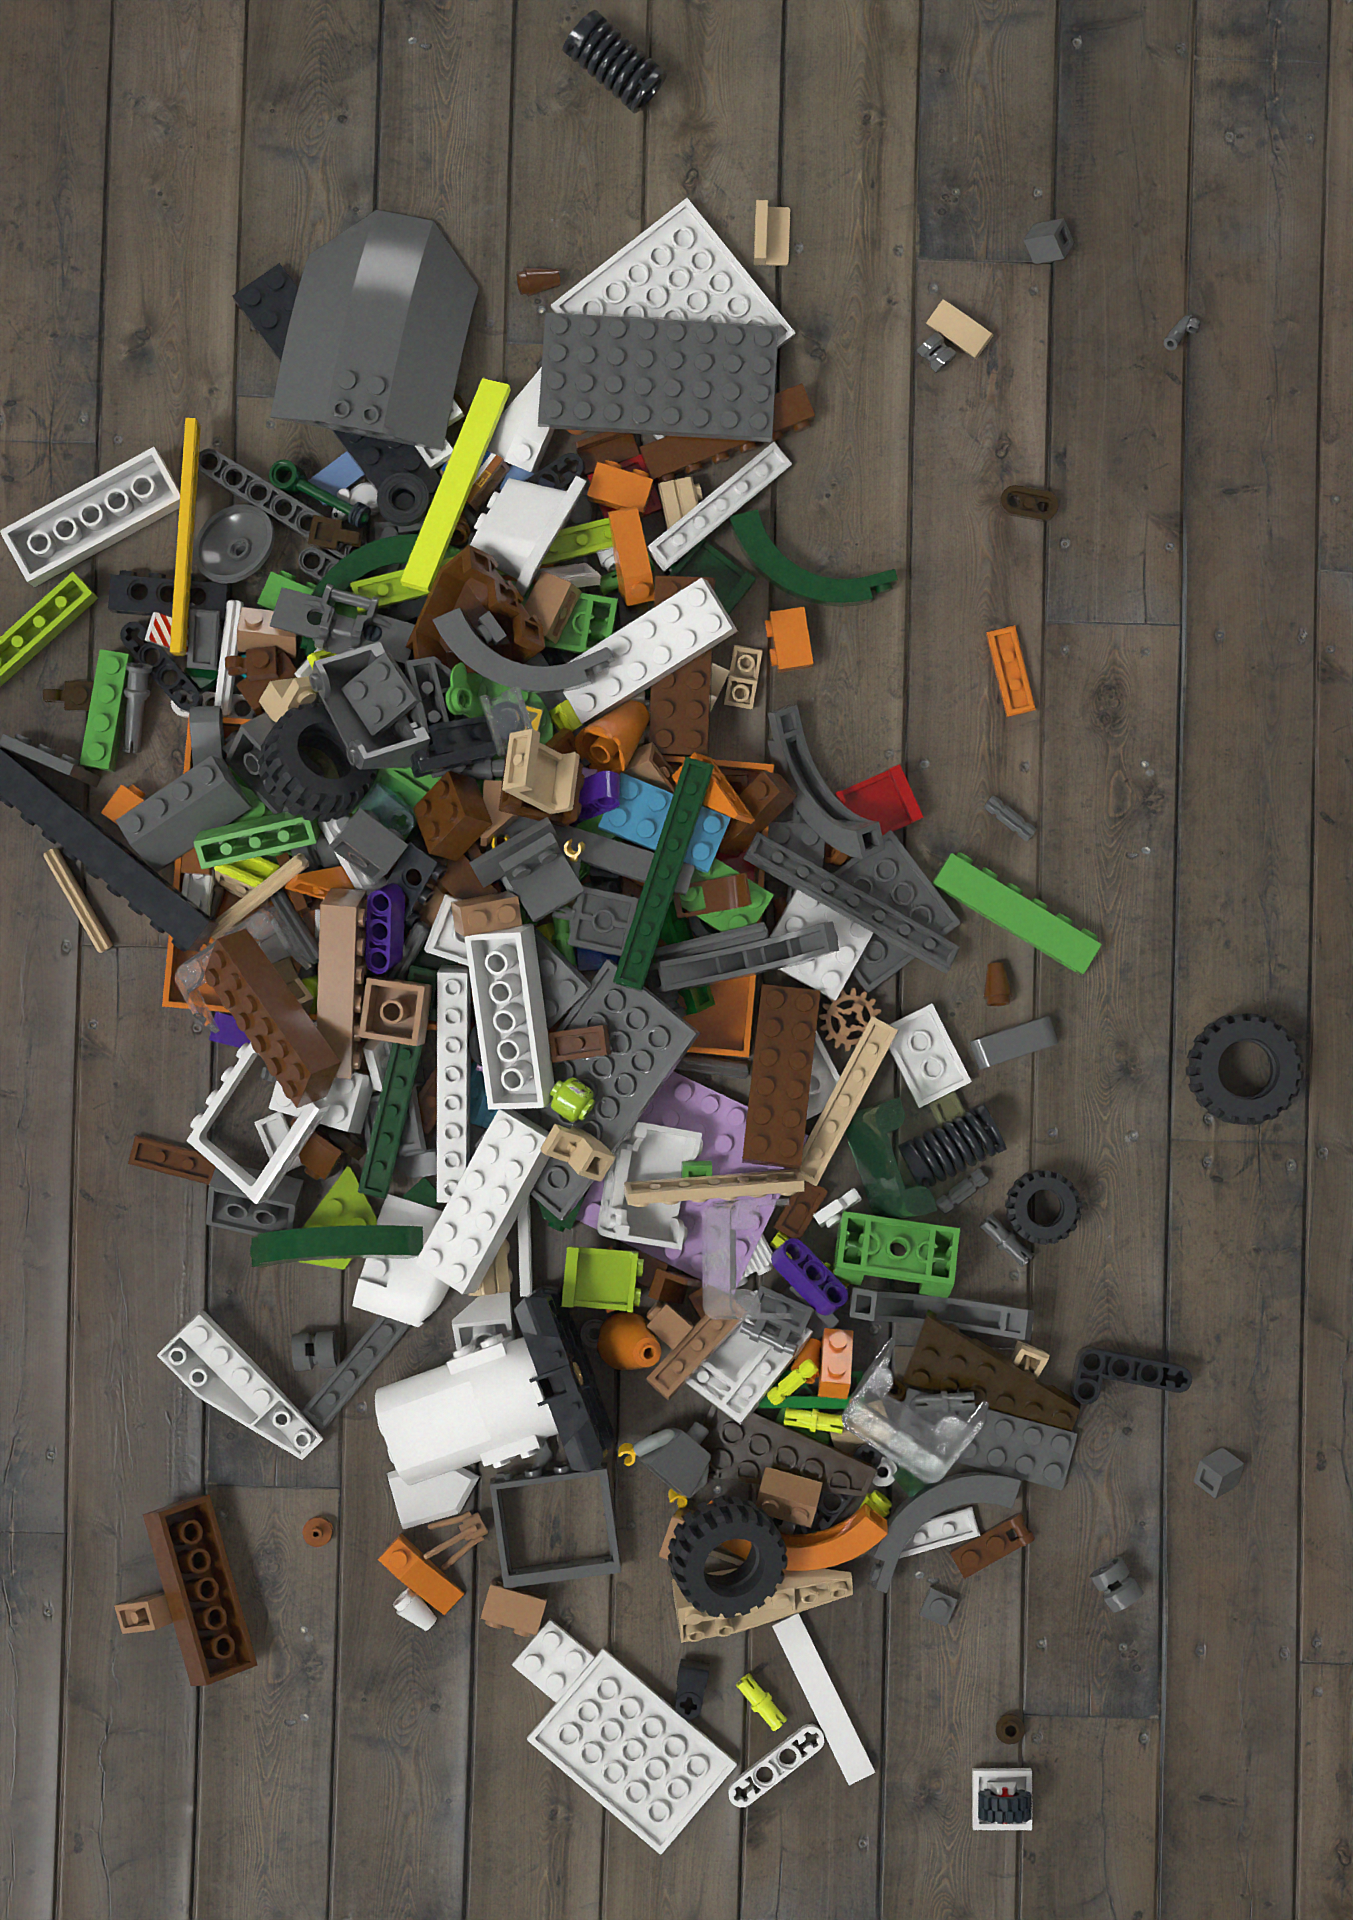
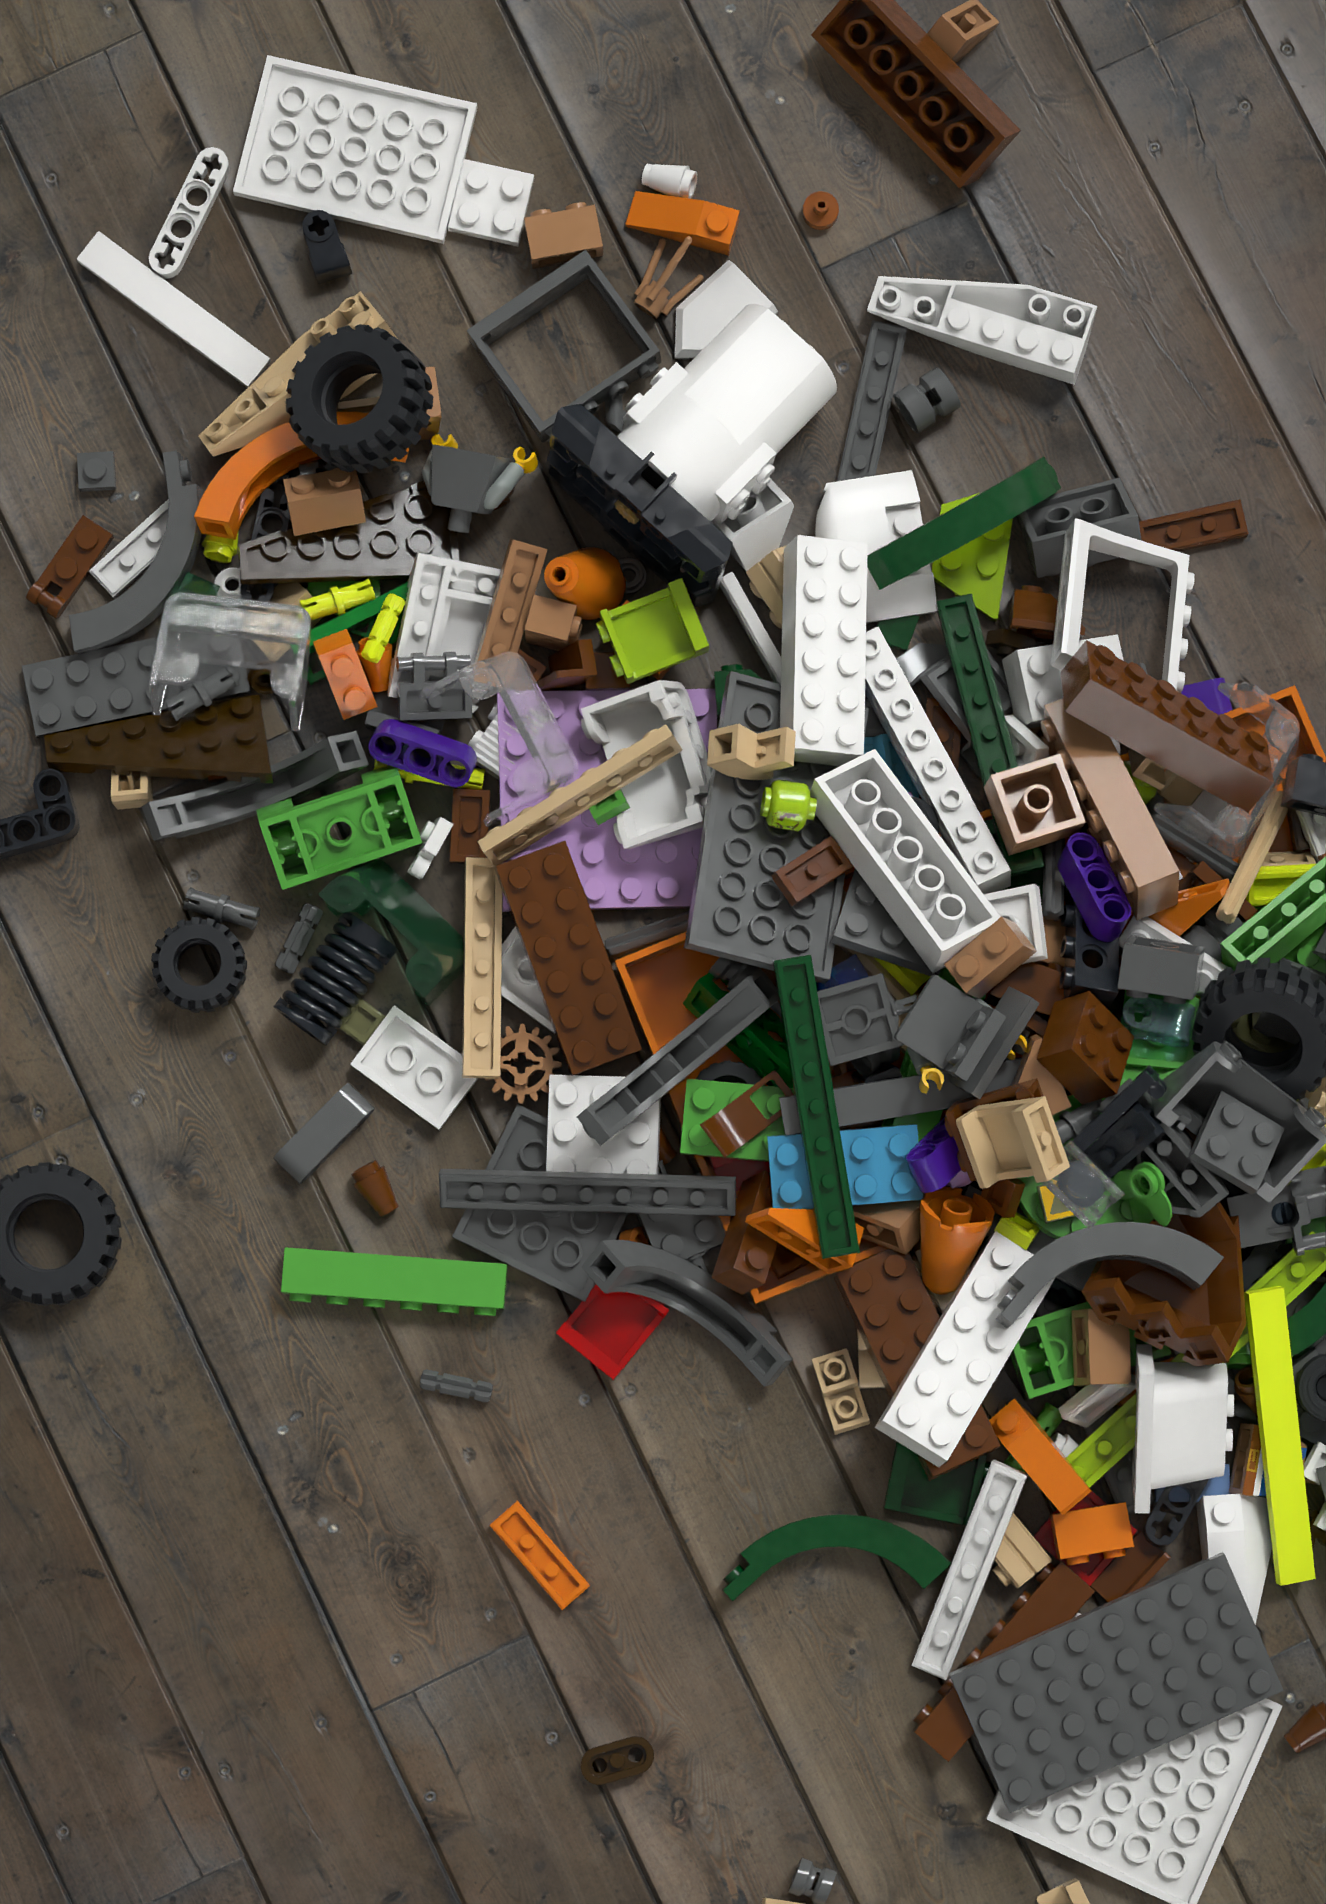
camera: 155 degrees right, 5 degrees down
(272, 1132) = (1098, 613): white tile -> none
(490, 629) = (1153, 1280): dark grey plate -> none
(561, 931) = (893, 980): bright green pin -> none
(712, 942) = (722, 1061): dark grey axle -> none
(761, 1702) = (240, 271): neon yellow pin -> none
(790, 639) = (810, 1460): orange brick -> none

